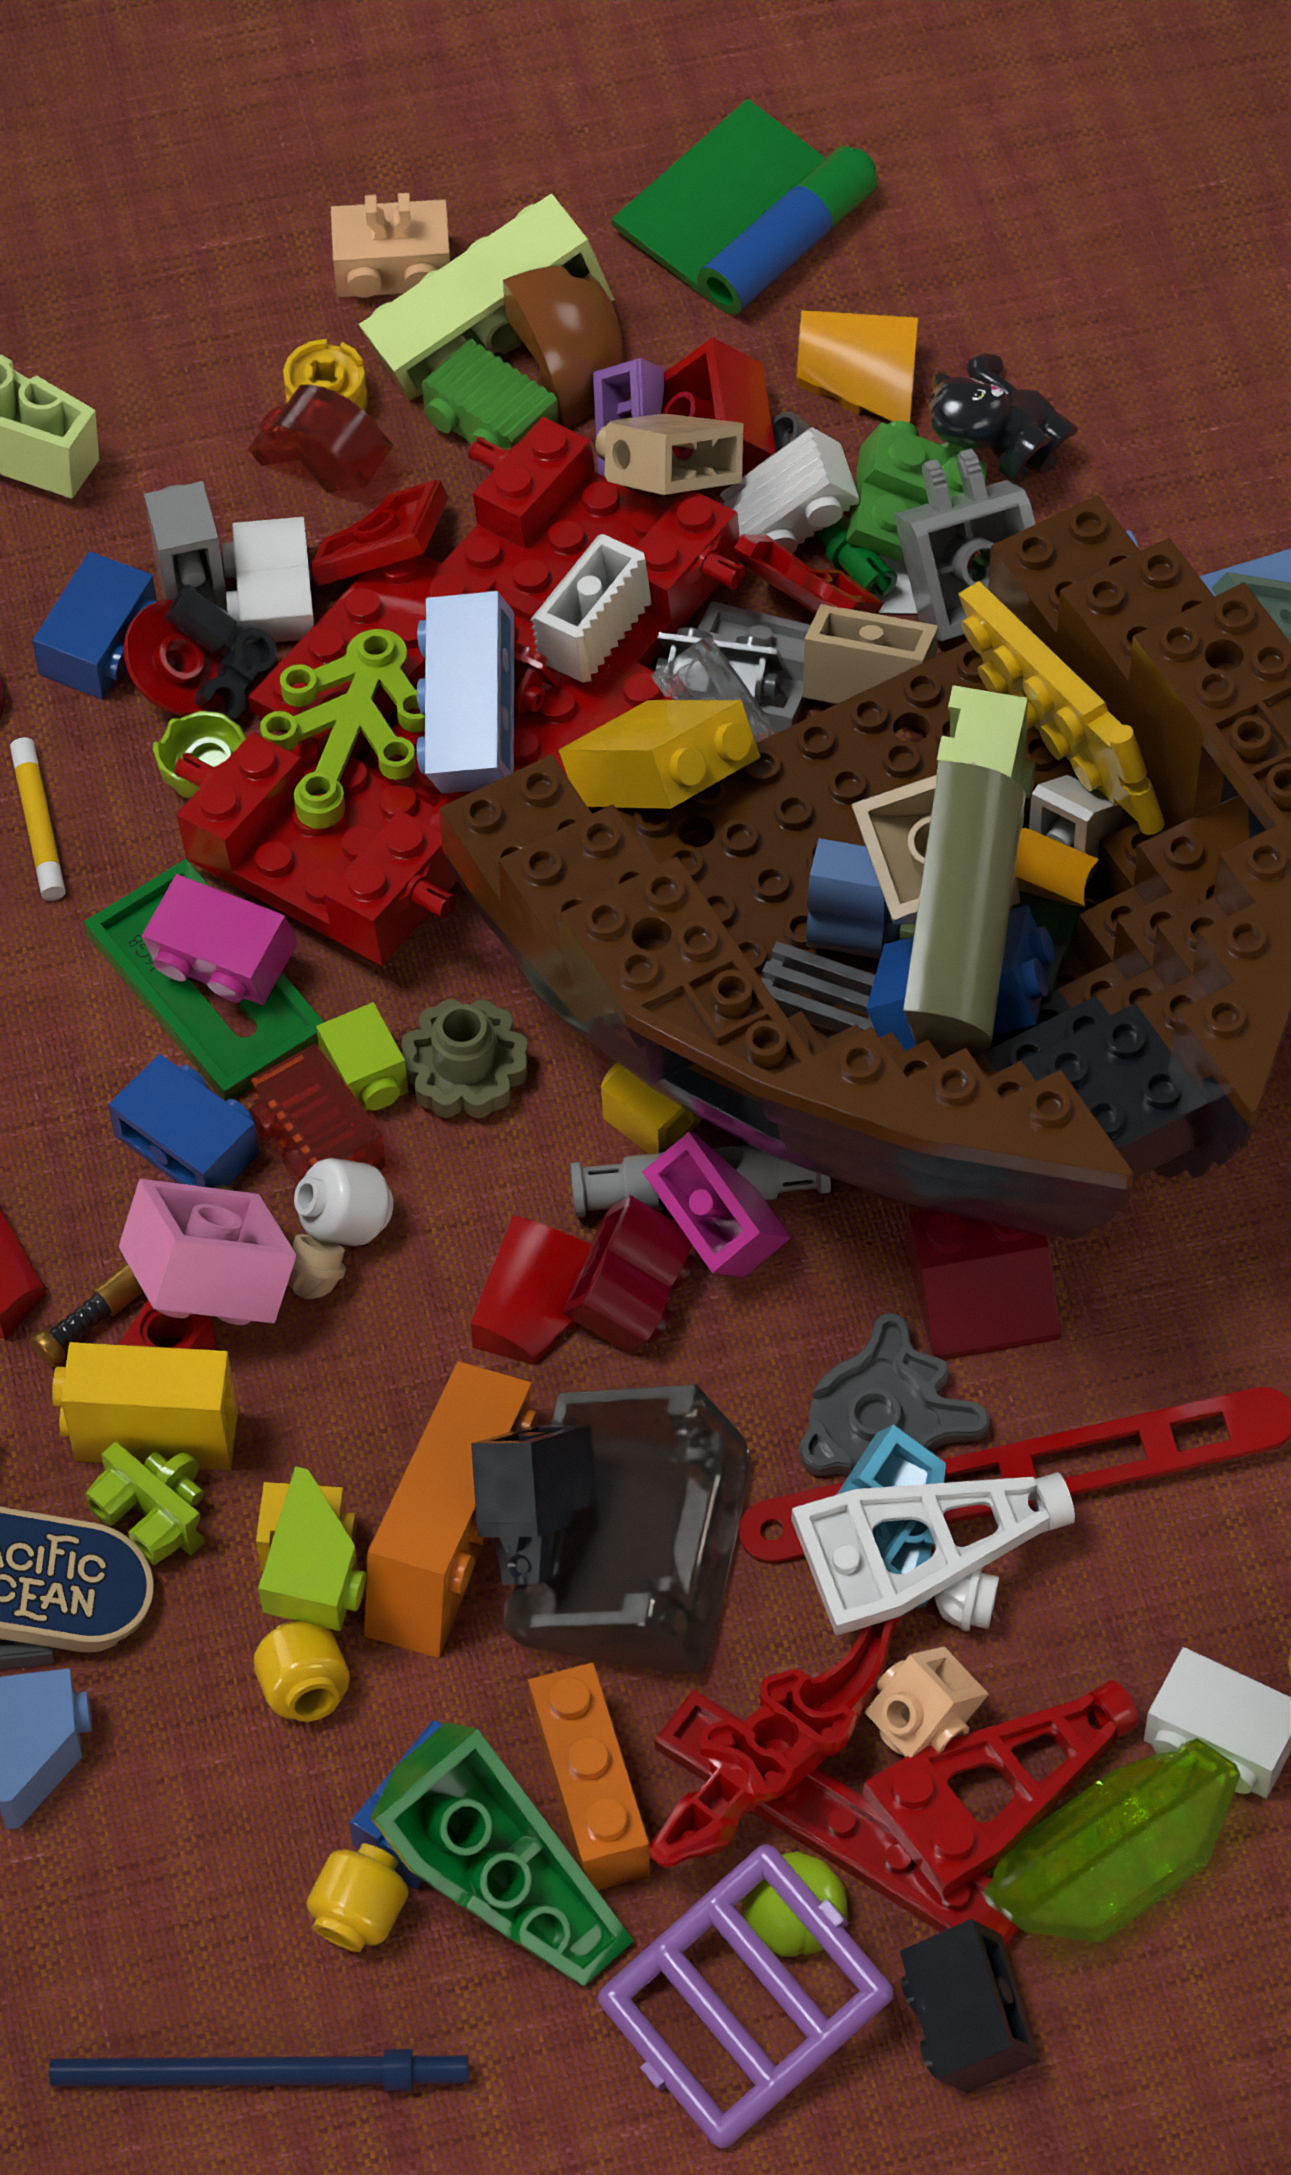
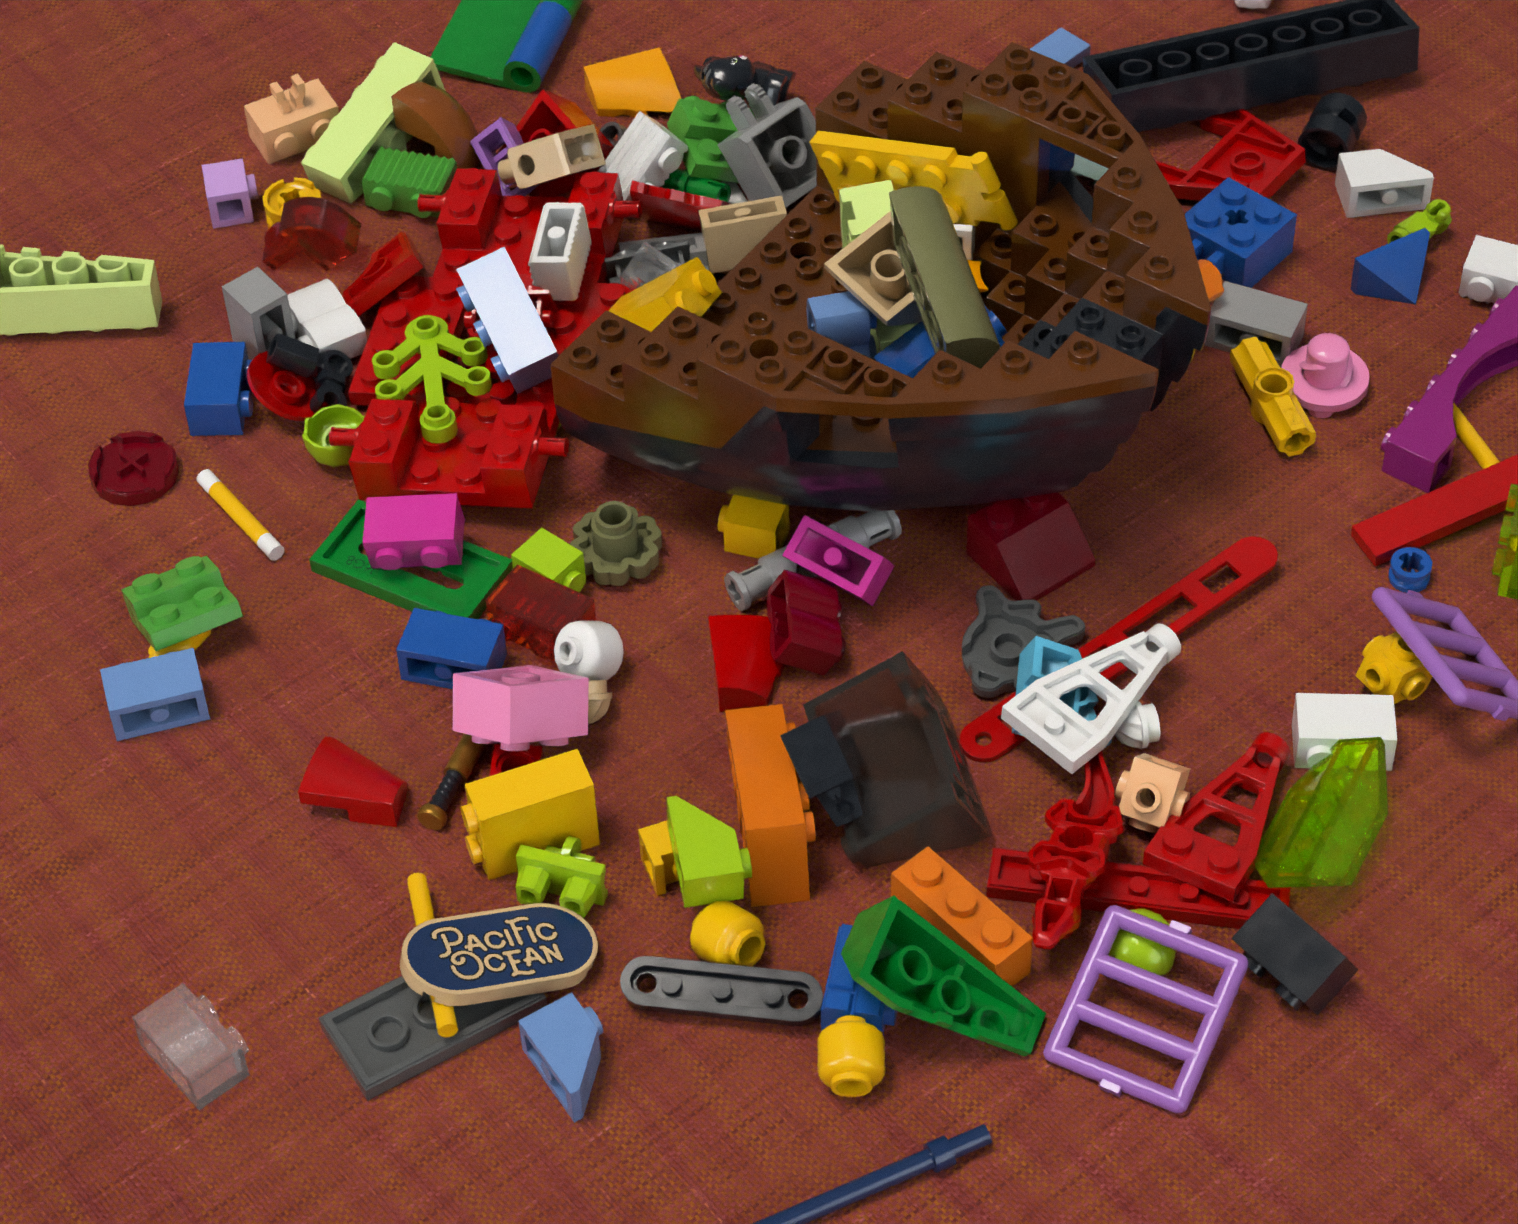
camera: 25 degrees left, 10 degrees down
(255, 330) = (229, 193): none -> lavender brick
(255, 1738) = (722, 990): none -> plate

